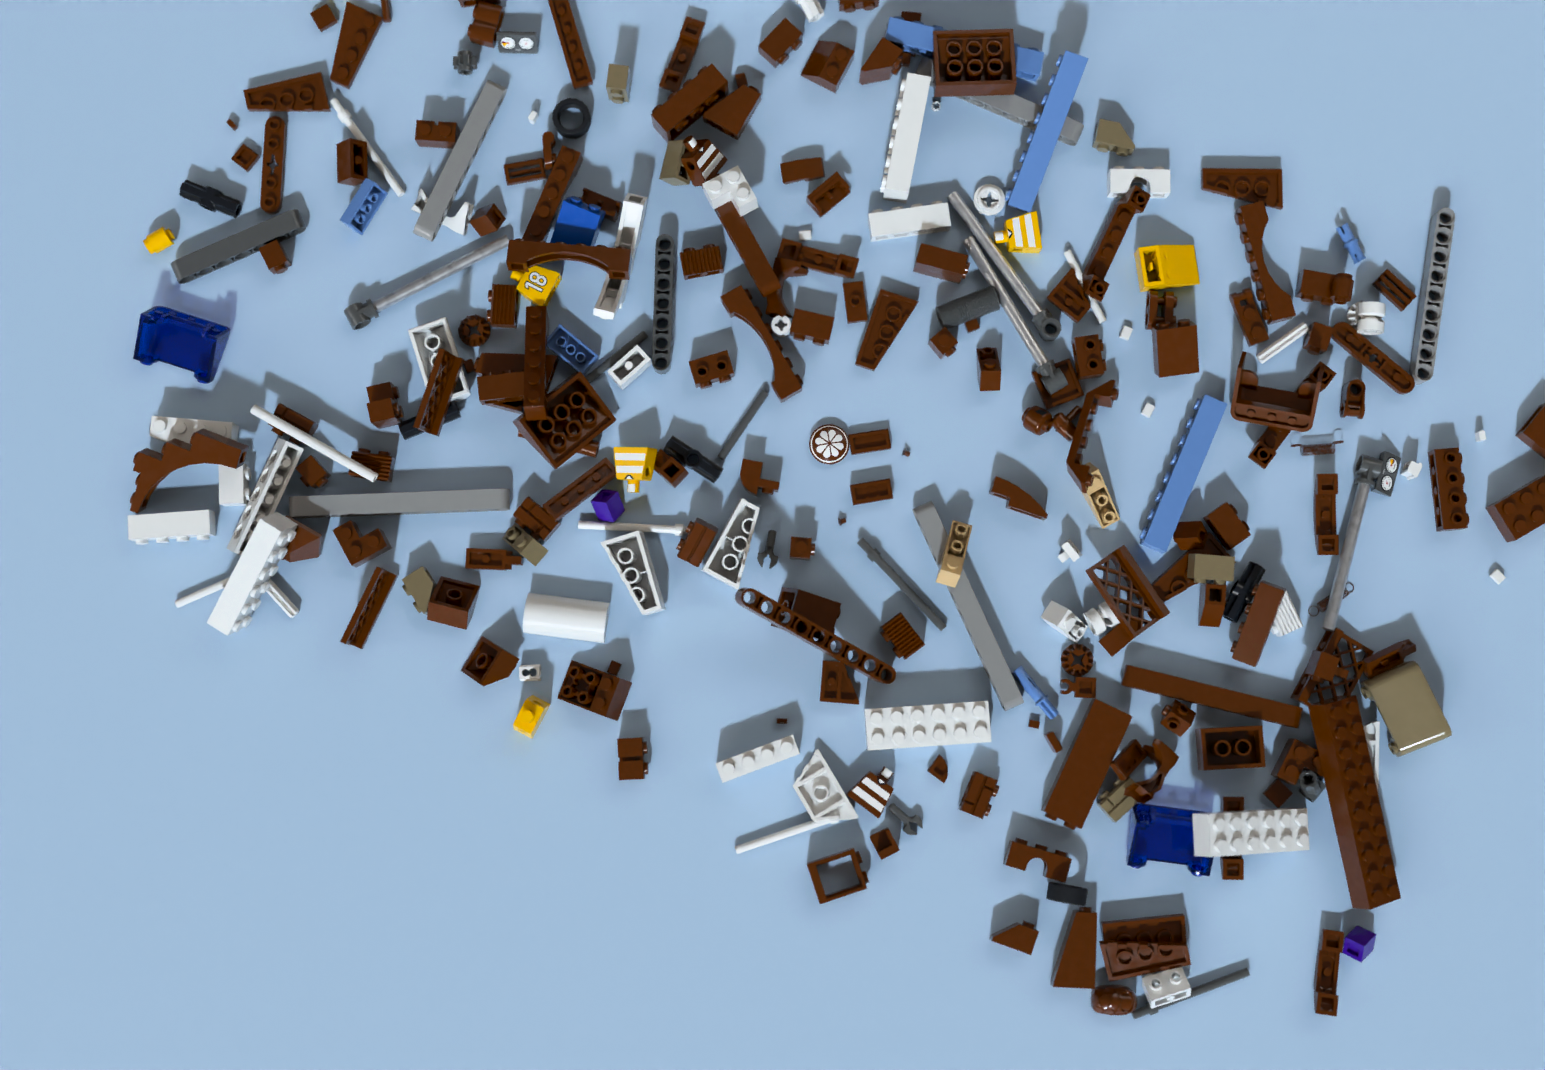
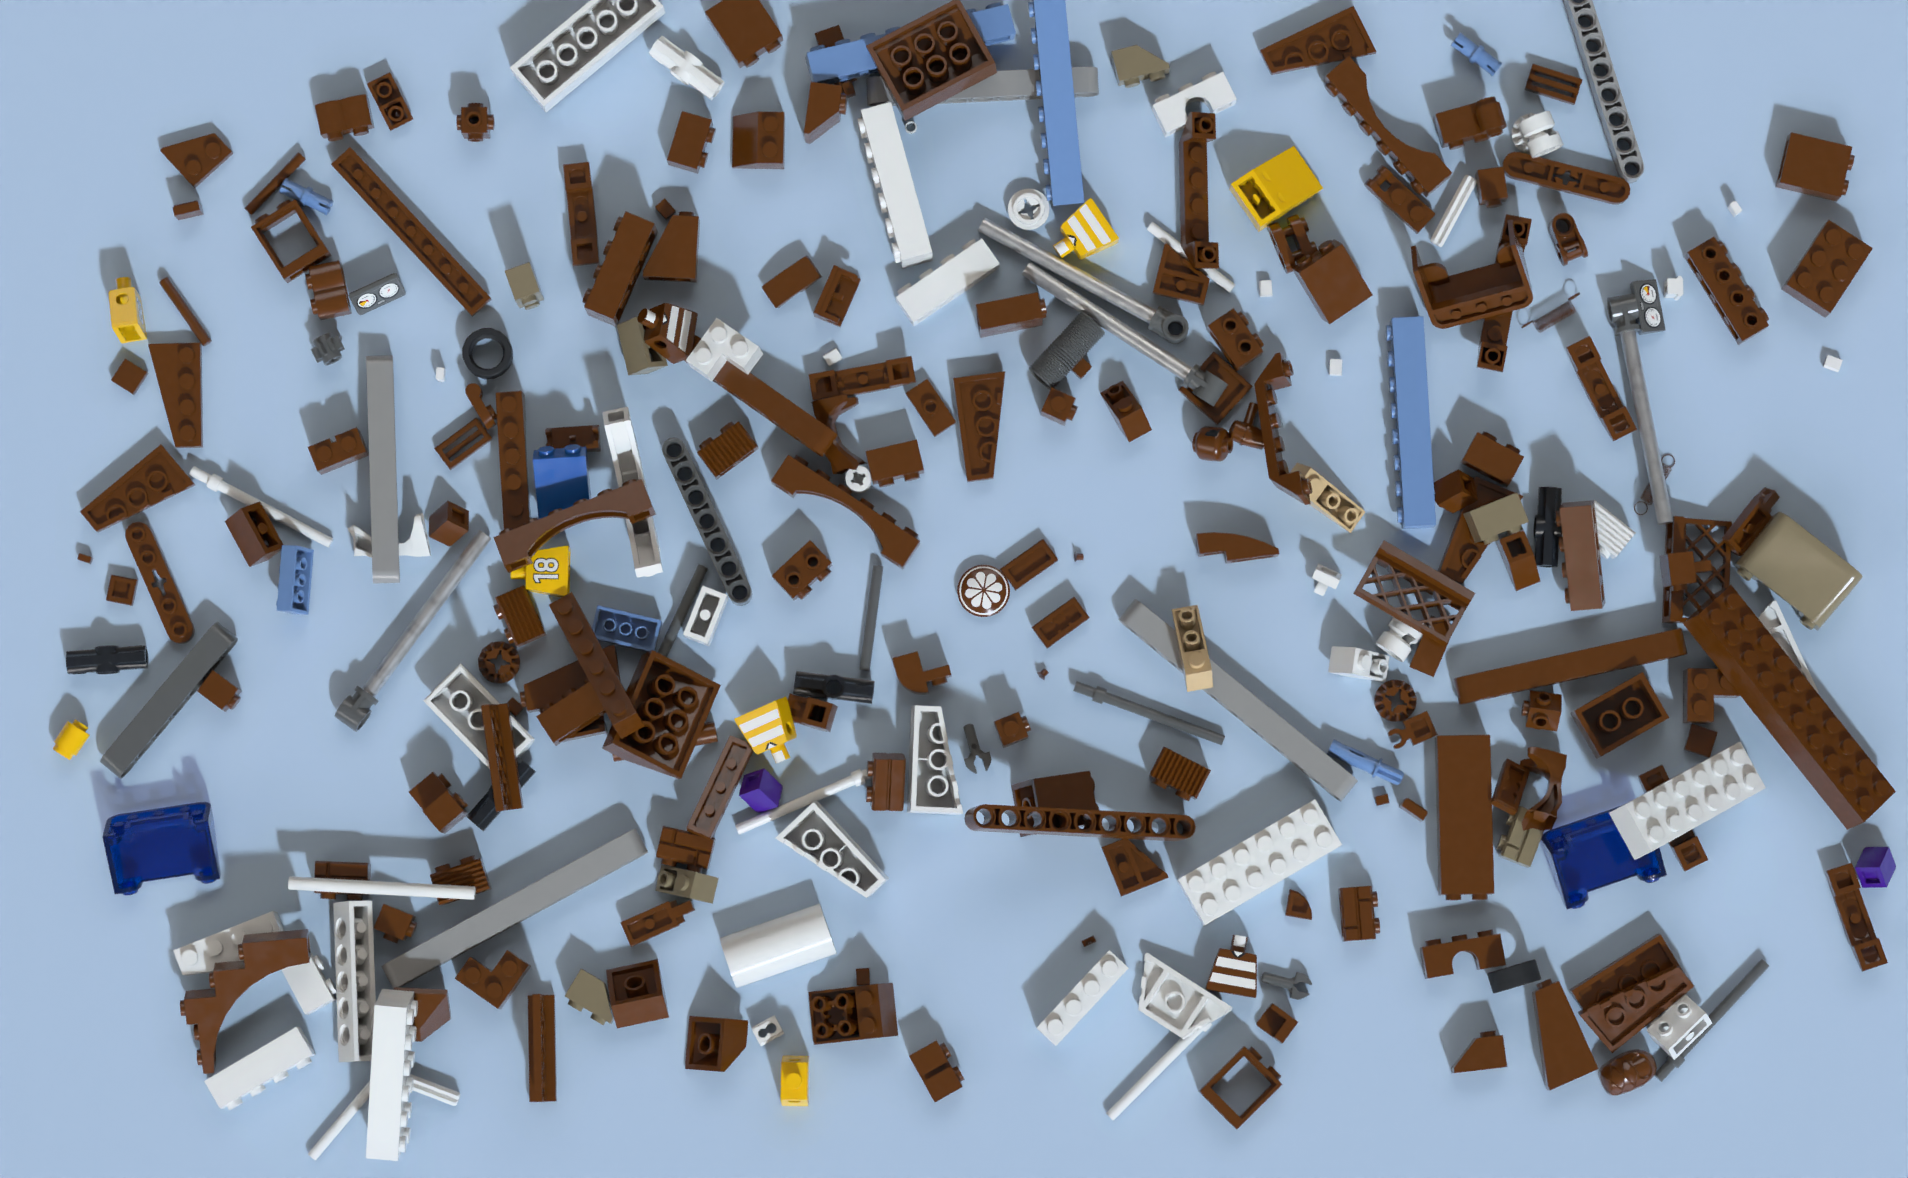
camera: 25 degrees left, 0 degrees up
(1310, 785) = (1732, 713): dark grey piece -> none

